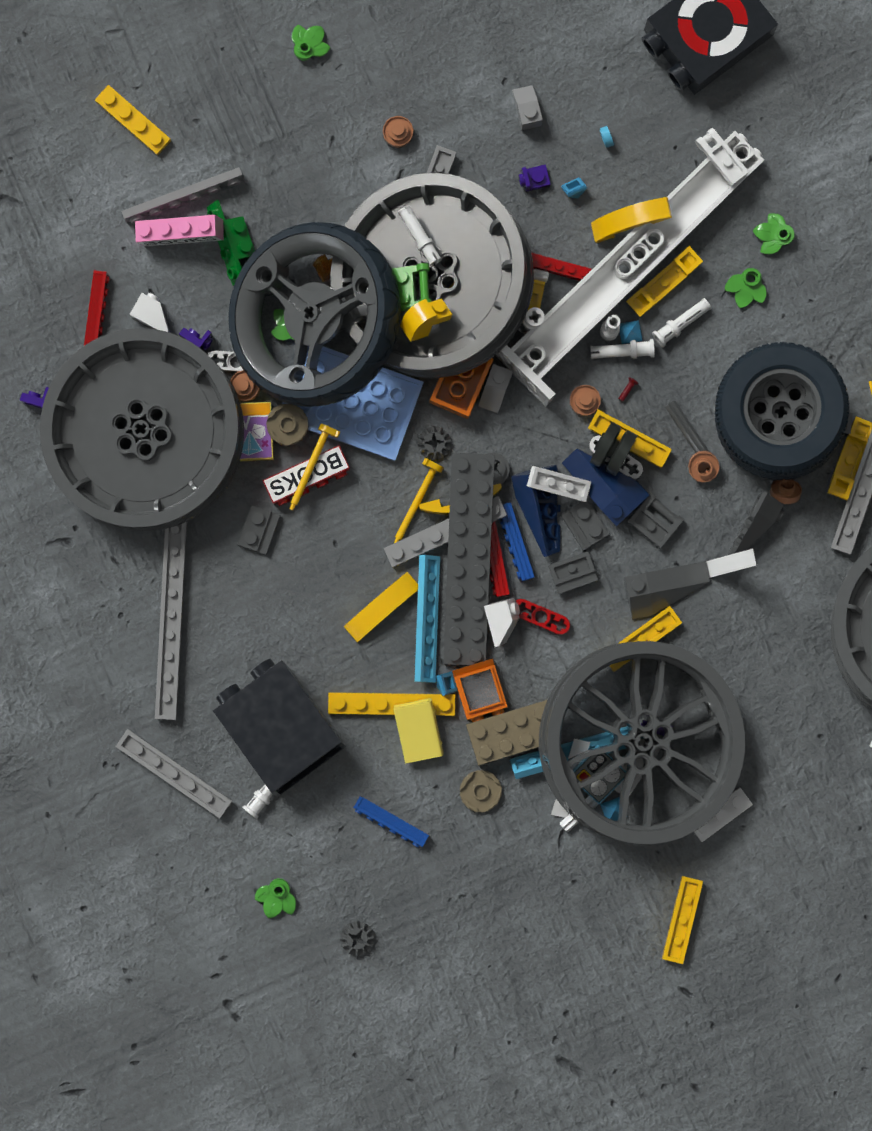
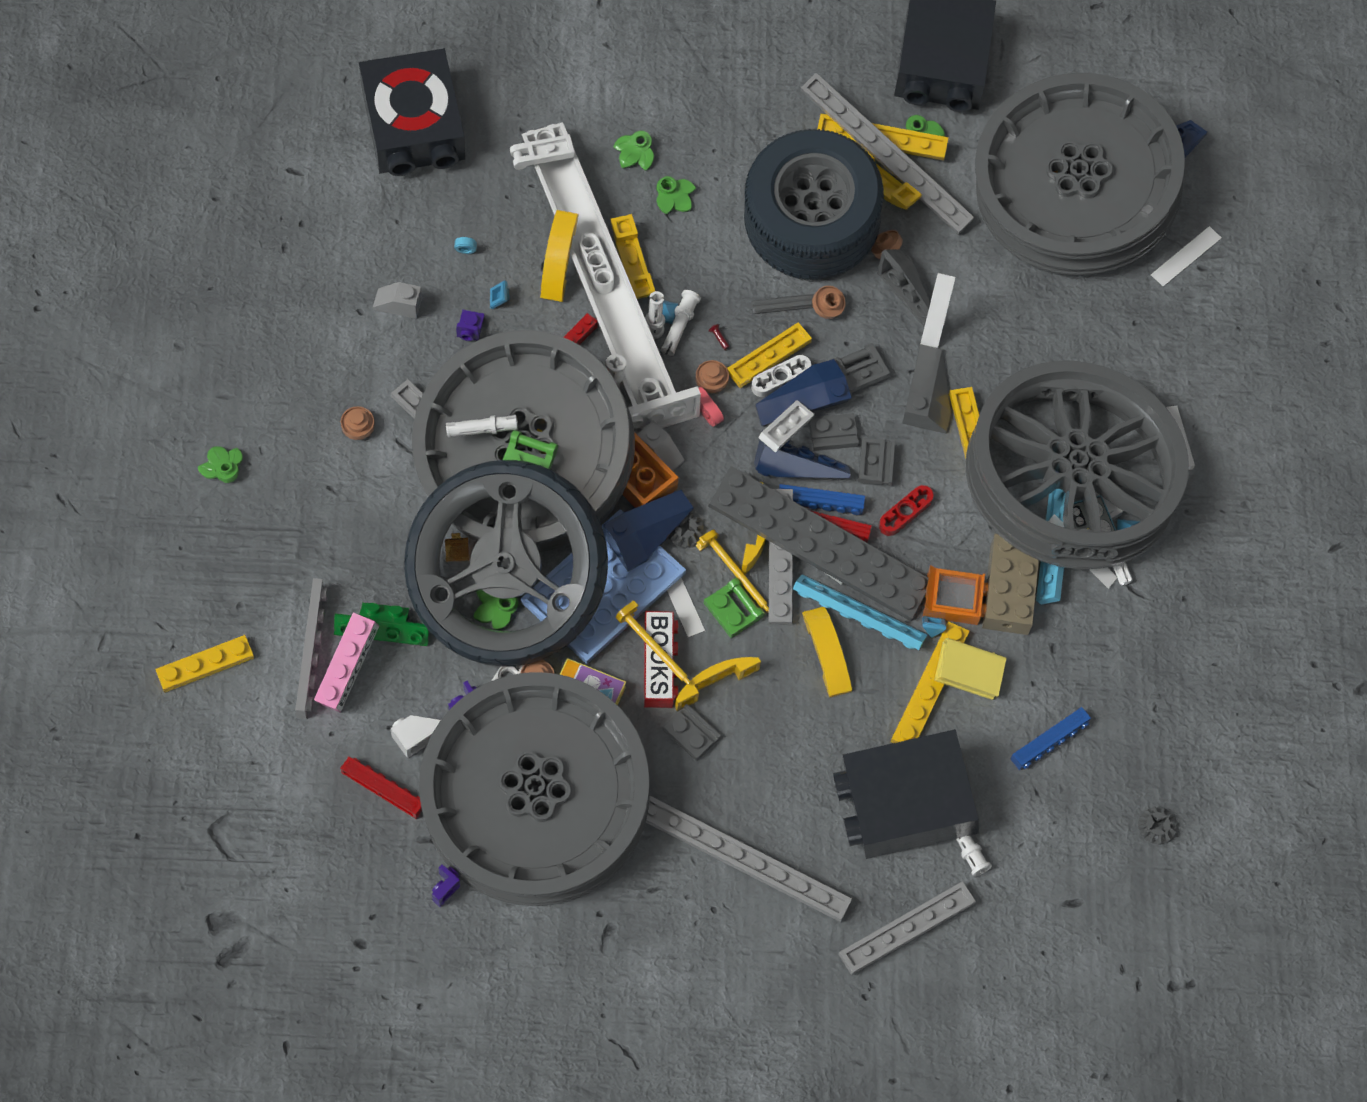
camera: 70 degrees left, 20 degrees down
(276, 901) = (1084, 888): bright green plate -> none
(287, 424) = (599, 651): dark tan tile -> none
(288, 514) = (740, 666): none -> yellow slope
(367, 474) = (685, 608): none -> white sticker
(377, 511) = (728, 613): none -> bright green plate
(409, 410) = (645, 528): none -> dark blue wedge
(422, 316) = (568, 454): yellow brick -> none
(480, 791) = (1056, 642): dark tan tile -> none
(502, 619) = (893, 540): white slope -> none
(554, 409) = (710, 409): none -> coral beam
(612, 448) = (776, 363): pearl dark grey wheel -> none
(674, 328) = (681, 270): white pin -> none
(682, 919) = (1264, 516): yellow plate -> none

